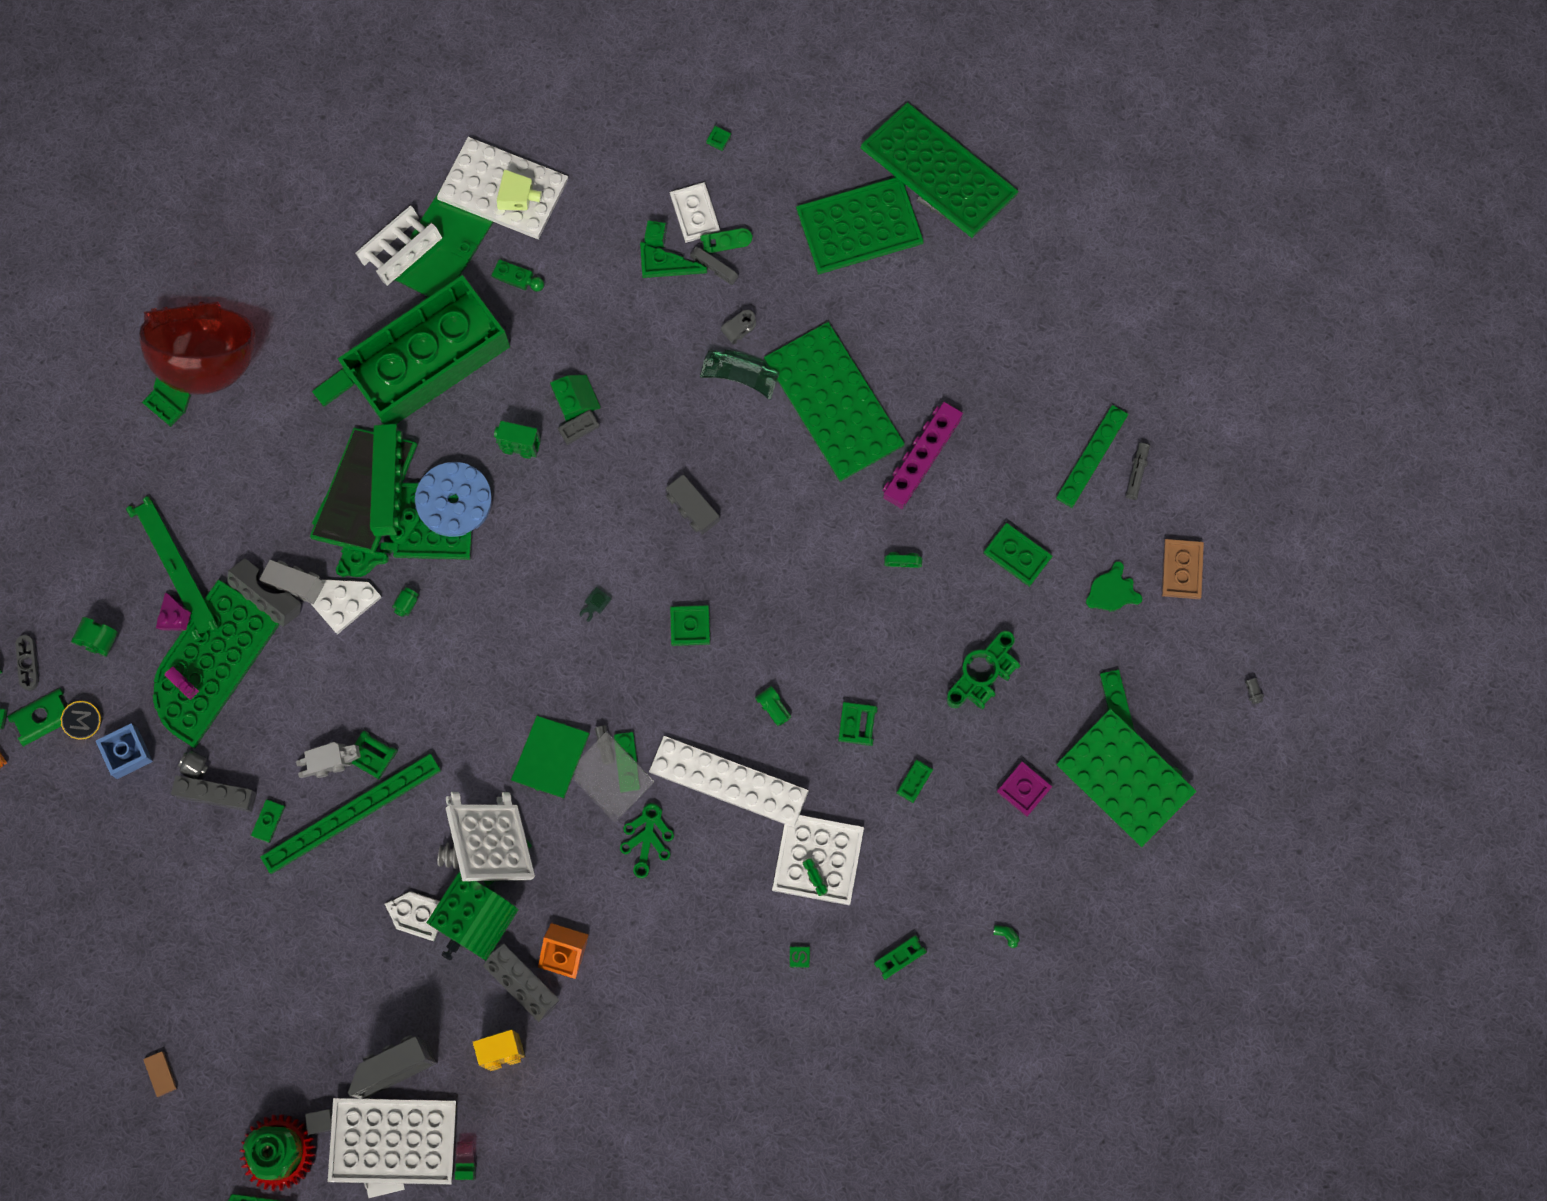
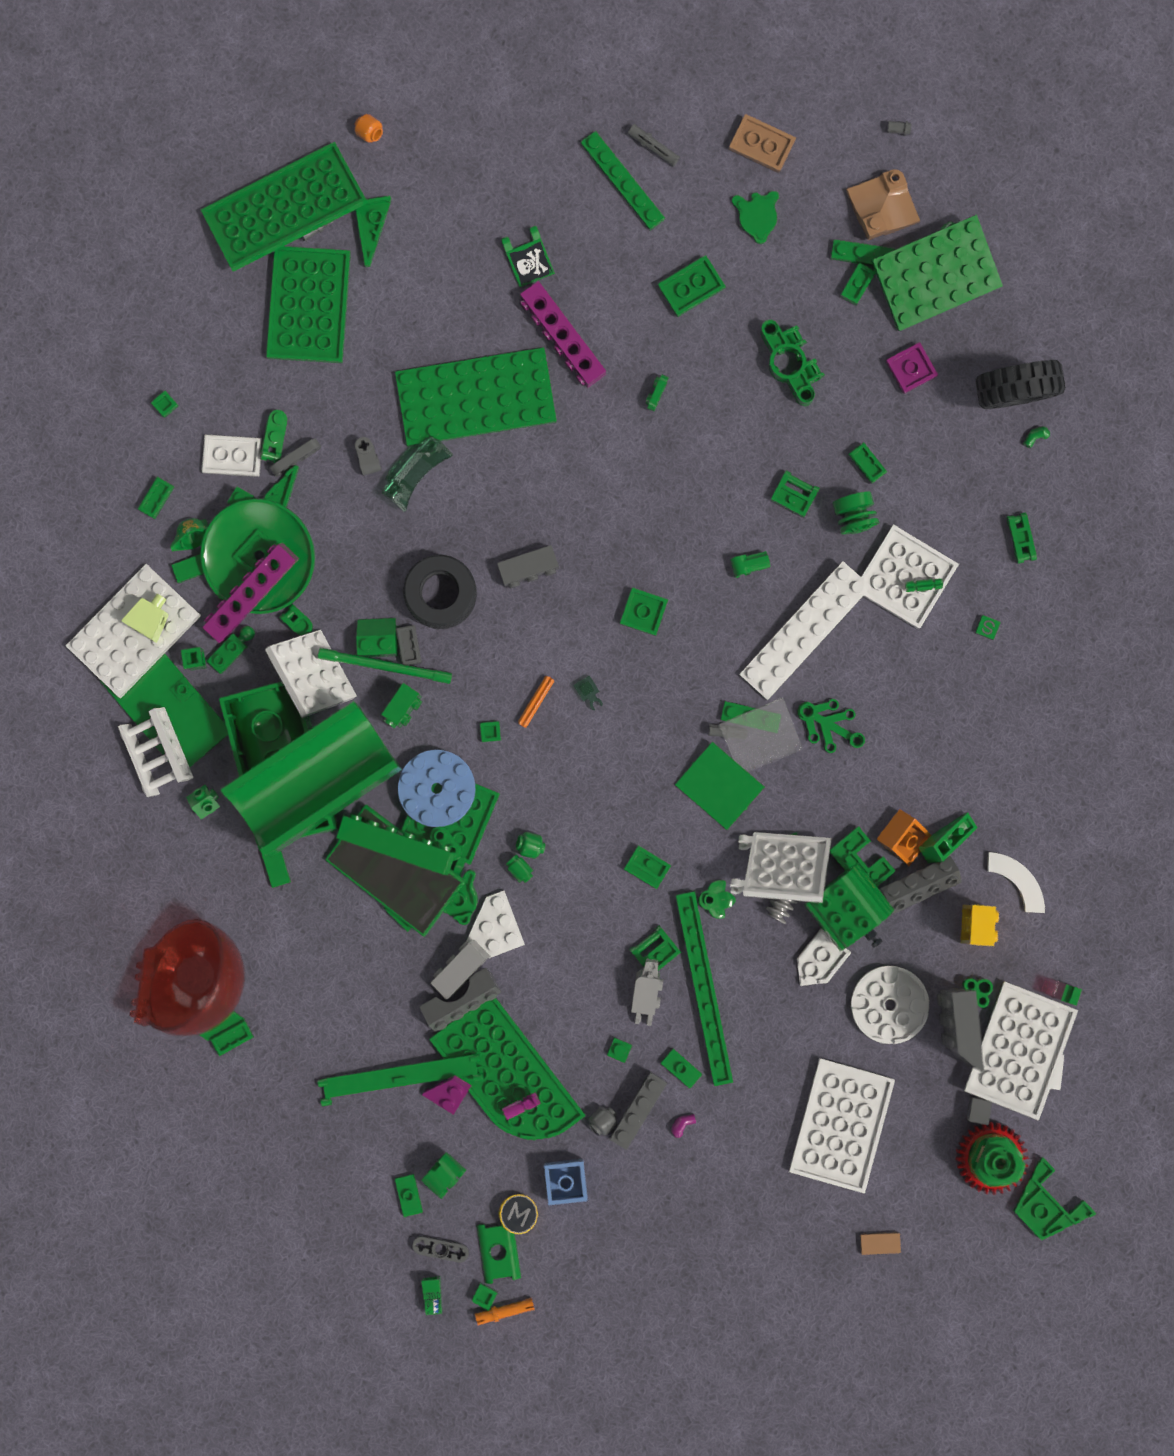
camera: 70 degrees left, 10 degrees up
(68, 616) = (409, 1195): none -> green plate
(214, 839) = (680, 1124): none -> magenta arm
(262, 993) = (841, 1125): none -> white plate
(266, 757) = (619, 1050): none -> green plate
(368, 302) = (203, 801): none -> green brick
(374, 994) = (910, 1004): none -> white plate
(416, 378) = (312, 779): none -> green piece
(431, 603) = (530, 845): none -> green head
(434, 1077) = (979, 994): none -> green piece
(438, 797) = (719, 899): none -> green plate
(448, 718) = (647, 867): none -> green plate
(495, 246) = (193, 659): none -> green brick
(517, 347) = (310, 681): none -> white plate
(525, 529) = (490, 731): none -> green tile
(527, 900) = (846, 856): none -> green plate
(540, 361) = (435, 675): none -> green piece
(561, 328) = (301, 625): none -> green plate
(564, 1081) = (1021, 877): none -> white tile
(568, 559) = (535, 701): none -> orange axle
(577, 993) = (948, 839): none -> green slope
(580, 217) = (188, 569): none -> green tile
(595, 246) = (239, 533): none -> green dish
(609, 204) = (189, 534): none -> green hat
(611, 287) = (286, 560): none -> magenta brick
(630, 162) = (156, 498): none -> green plate
(639, 458) = (421, 573): none -> black tyre
(859, 785) = (855, 511): none -> green wheel
(956, 250) = (371, 222): none -> green wing
(981, 401) = (529, 260): none -> flag
(1043, 215) = (368, 128): none -> orange head
(1044, 891) = (1020, 384): none -> black tyre
(1084, 708) = (858, 284): none -> green plate
(1172, 704) = (883, 205): none -> medium nougat slope

